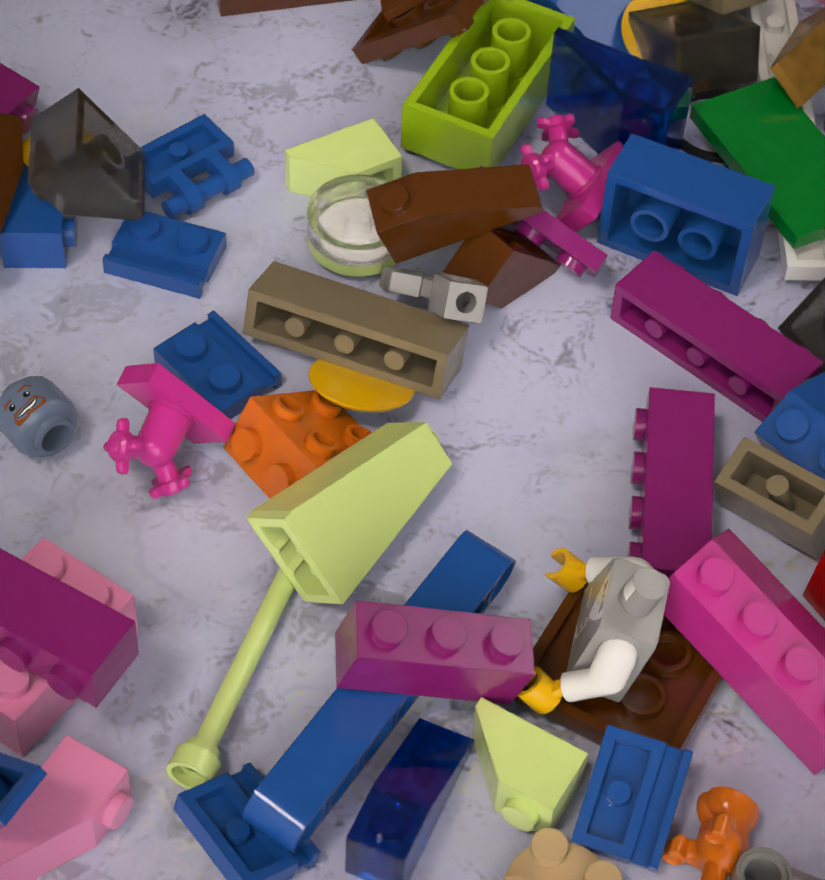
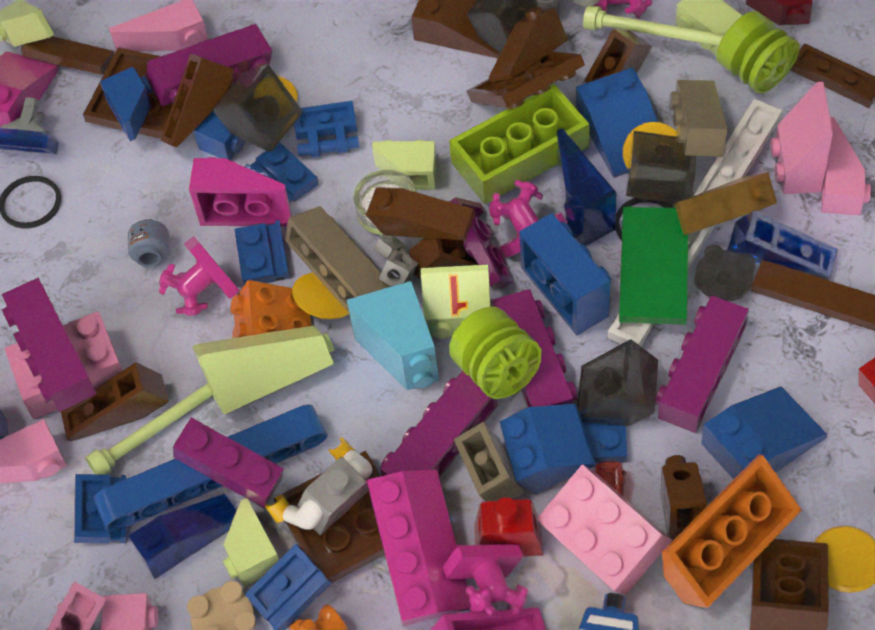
camera: 40 degrees right, 5 degrees up
(139, 292) = (236, 195): none -> dark pink slope
(176, 648) = (118, 401): none -> reddish brown slope
(524, 383) = (395, 334): none -> medium azure slope
(567, 307) = (452, 296): none -> yellowish green slope
(697, 336) = (495, 352): none -> lime wheel

